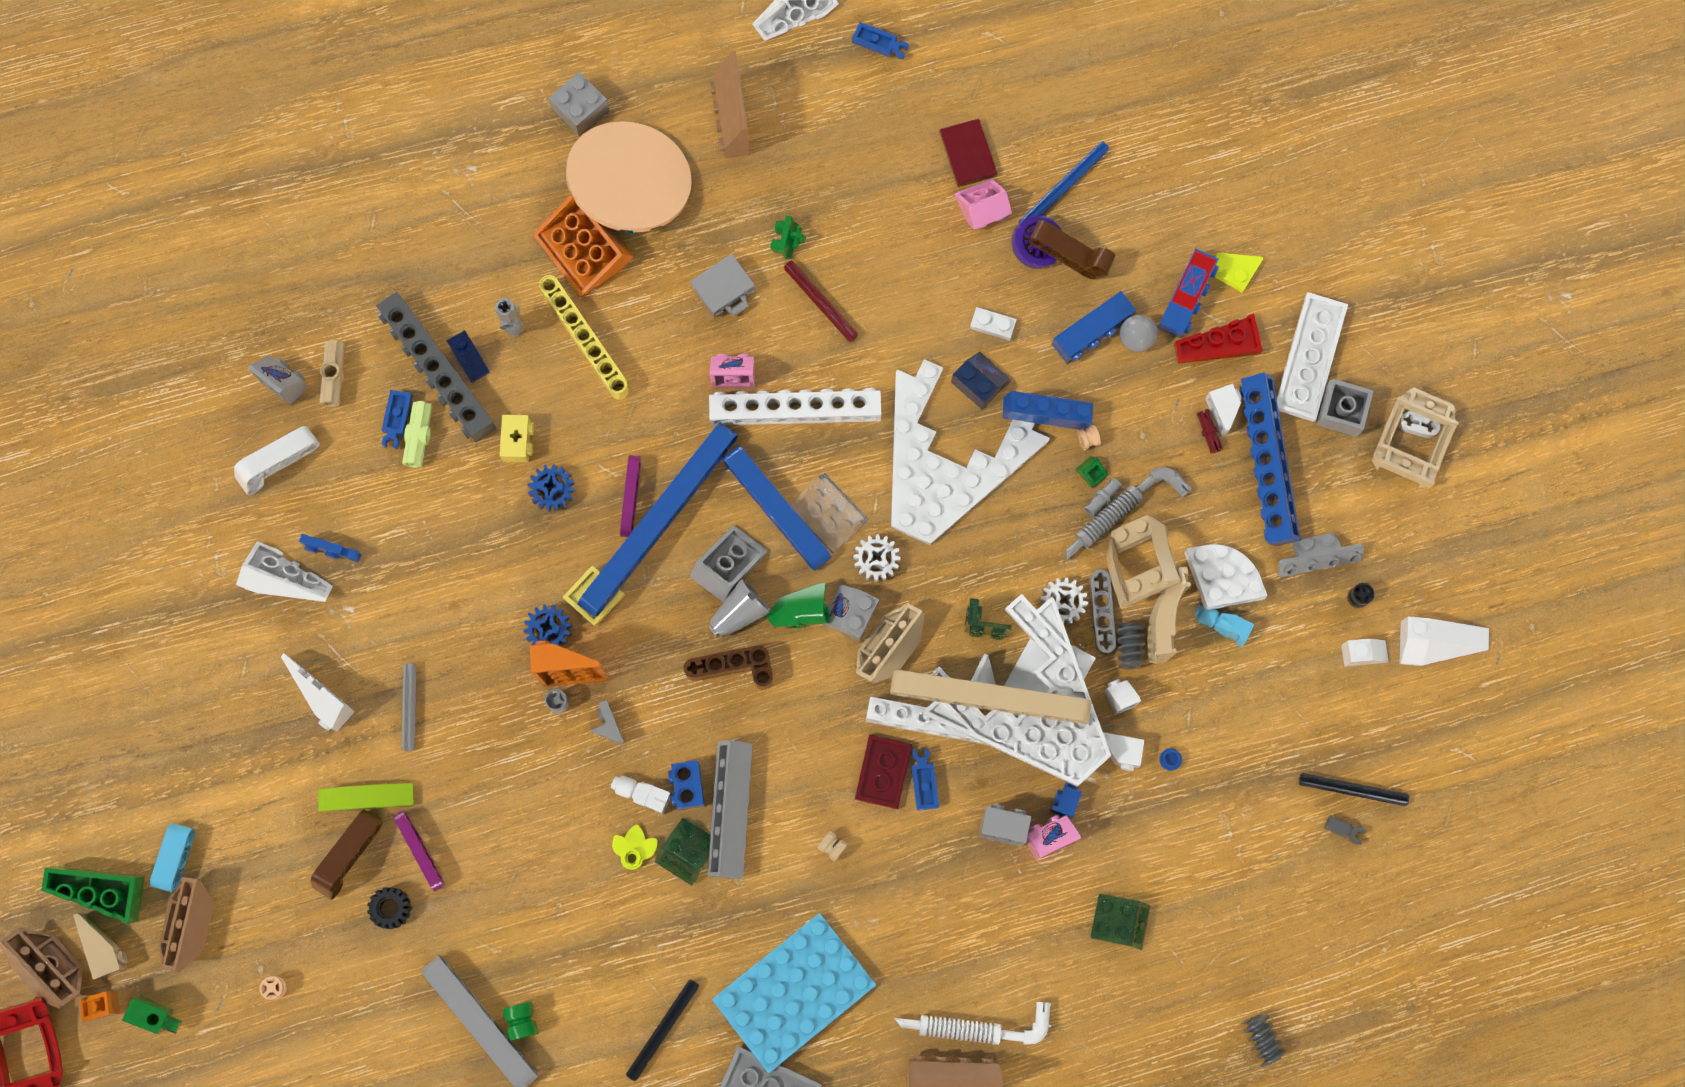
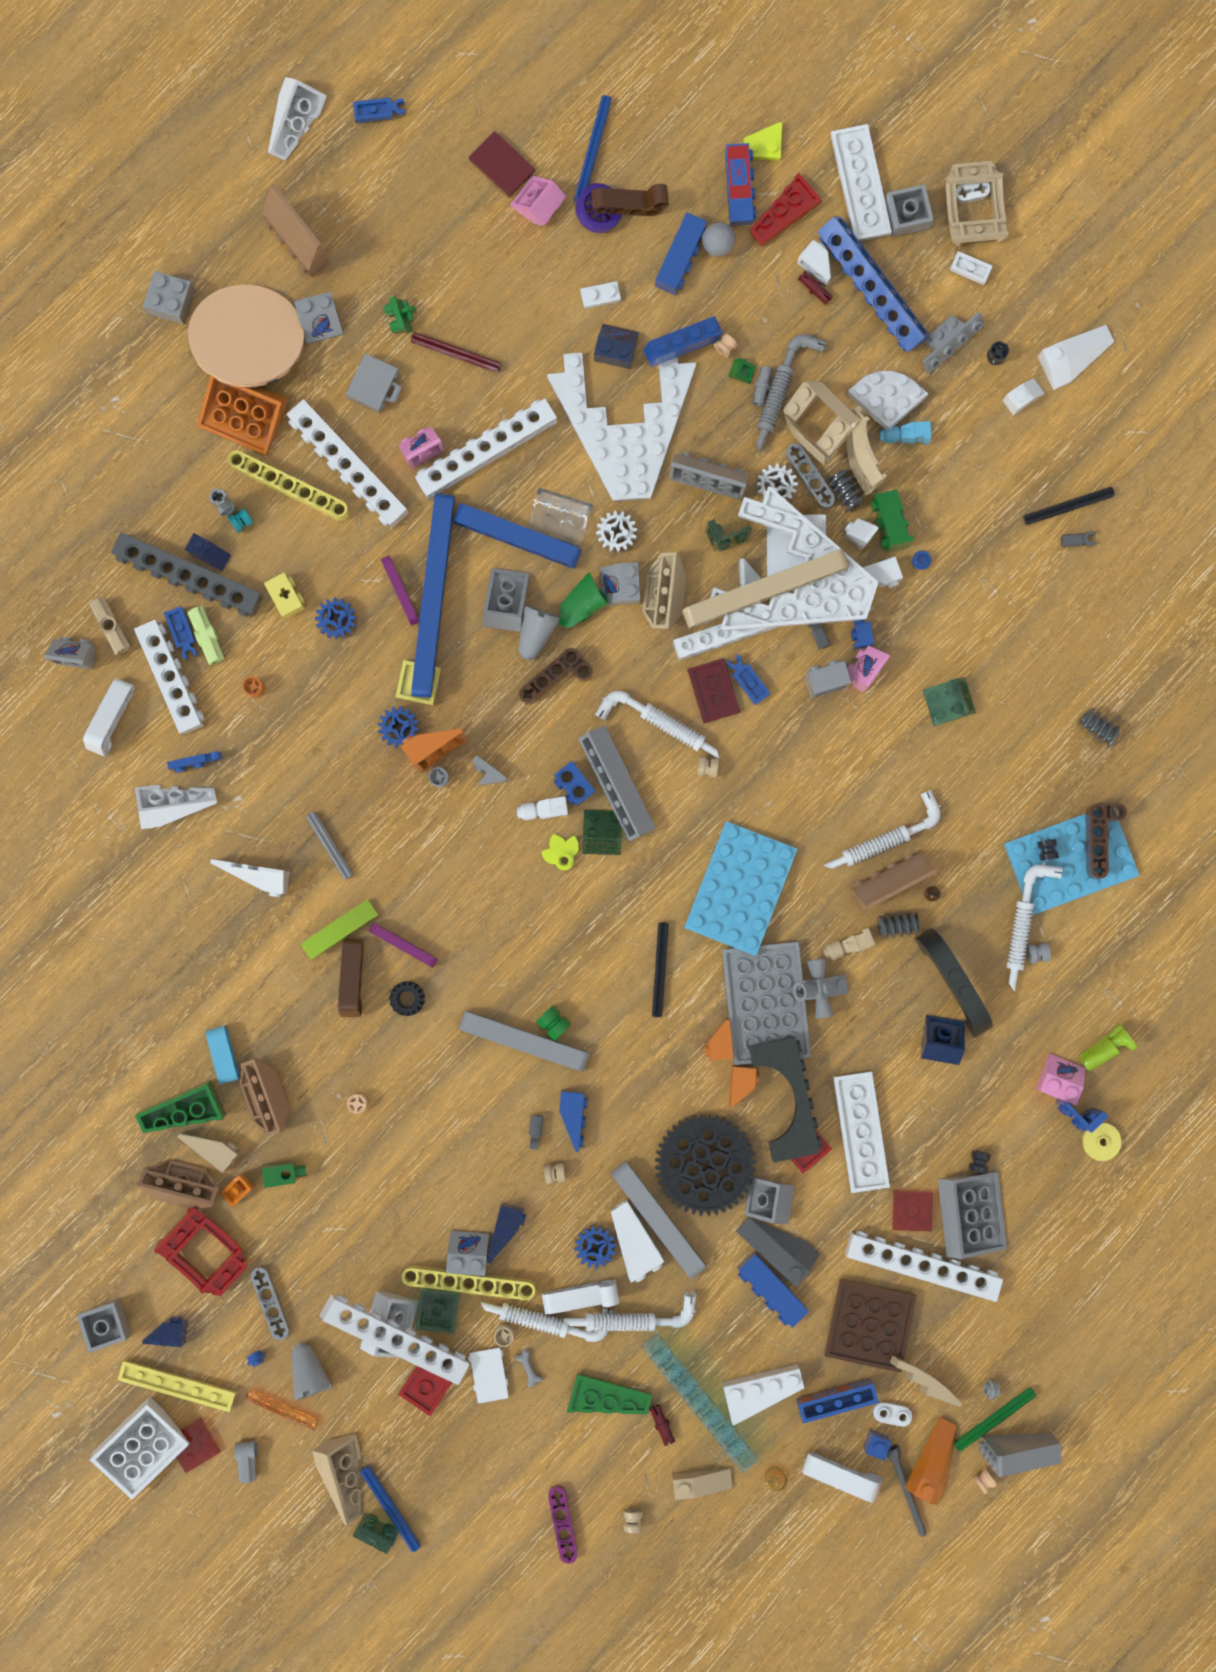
camera: 30 degrees left, 10 degrees up
(359, 402) = (146, 634): none -> white brick
(427, 509) = (249, 686): none -> orange wheel
(518, 343) = (240, 520): none -> teal wheel
(639, 277) = (303, 412): none -> white brick
(708, 198) = (319, 317): none -> light grey slope
(810, 768) = (659, 719): none -> white piece
(999, 554) = (708, 476): none -> light grey slope
(1023, 777) = (819, 635): none -> dark grey bar
(1160, 702) = (891, 521): none -> green wedge
(1378, 497) = (970, 268): none -> white plate

